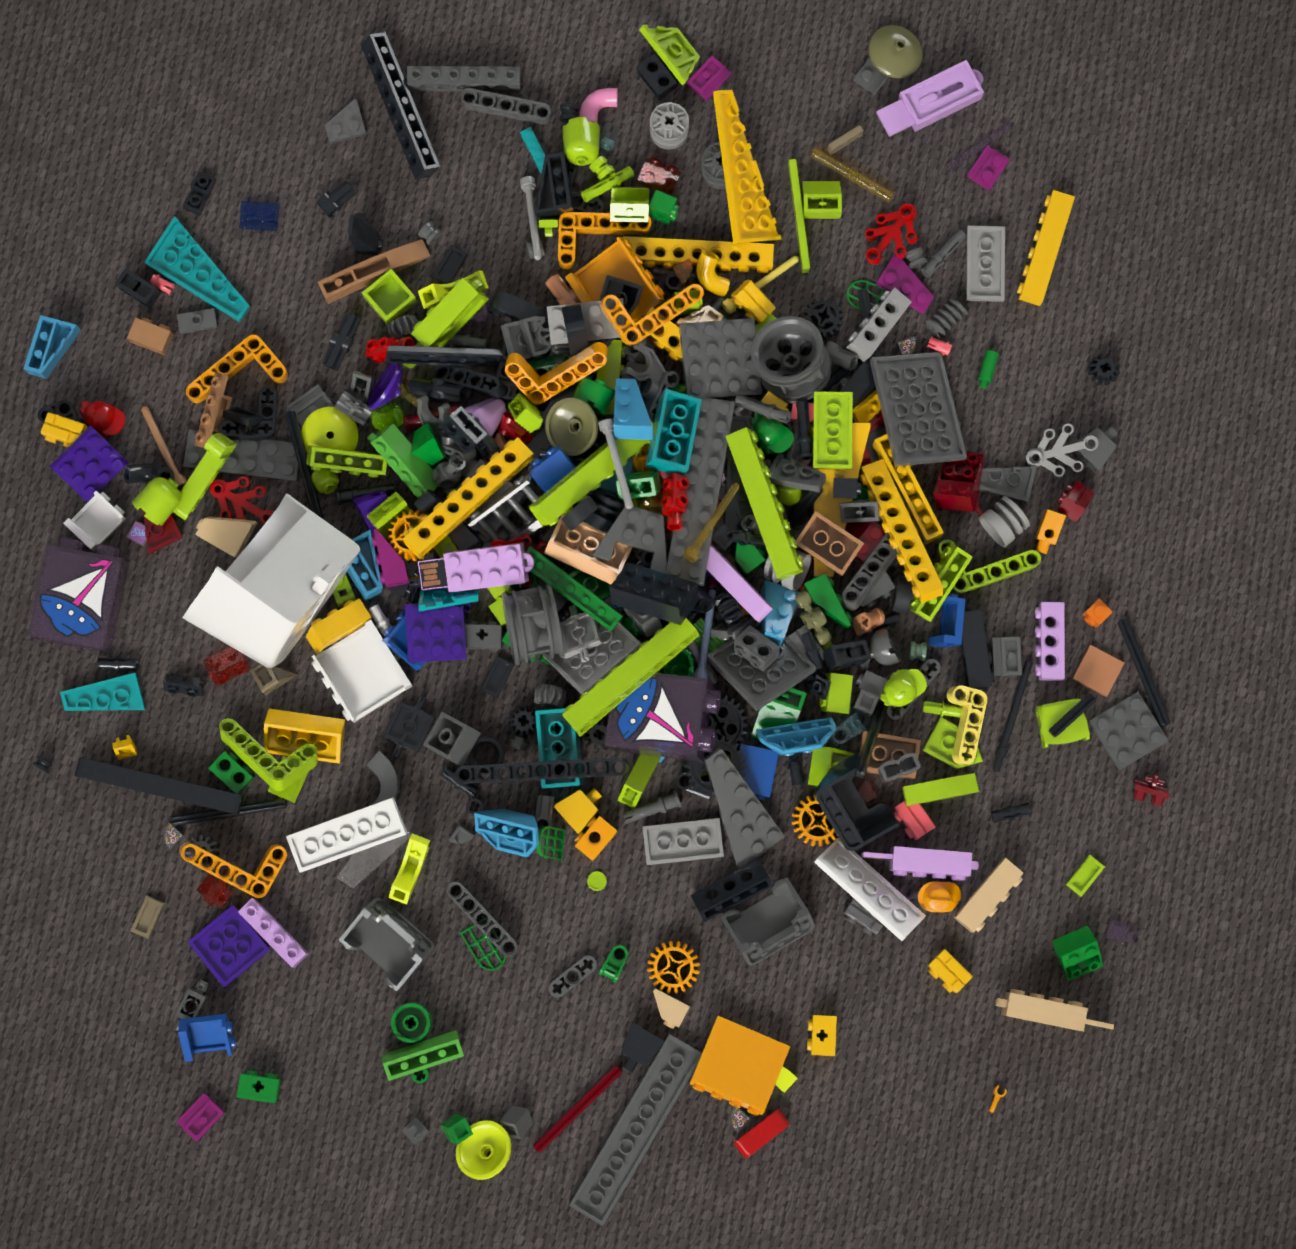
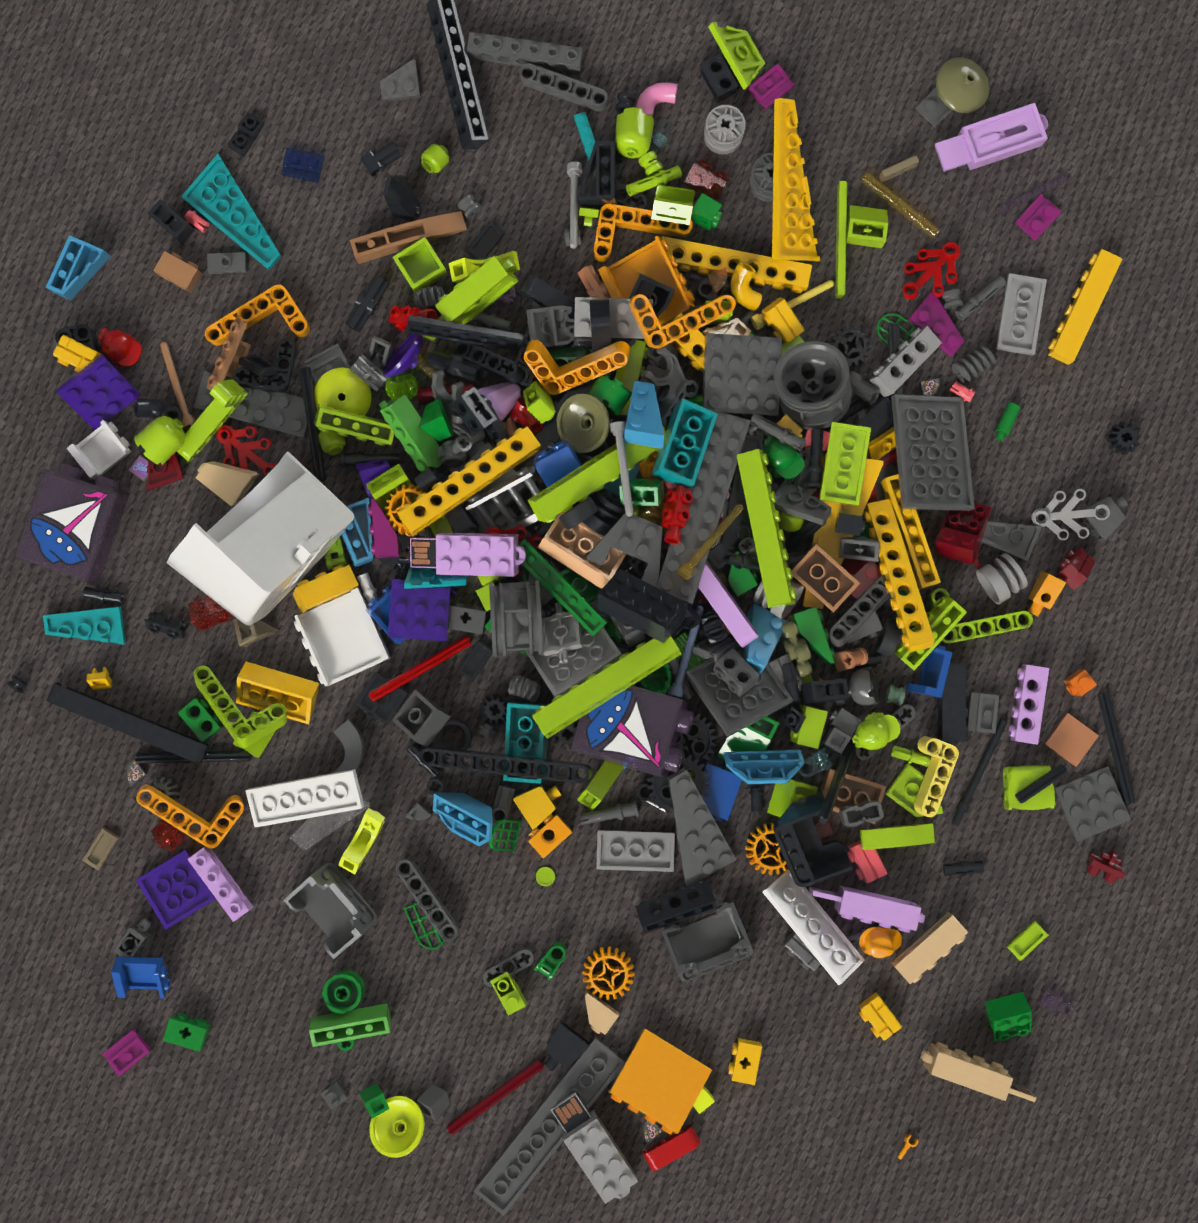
camera: 15 degrees right, 5 degrees up
(389, 191) = (434, 158): none -> lime head
(443, 691) = (419, 668): none -> red axle
(576, 999) = (508, 993): none -> lime slope
(684, 1143) = (594, 1149): none -> light grey piece

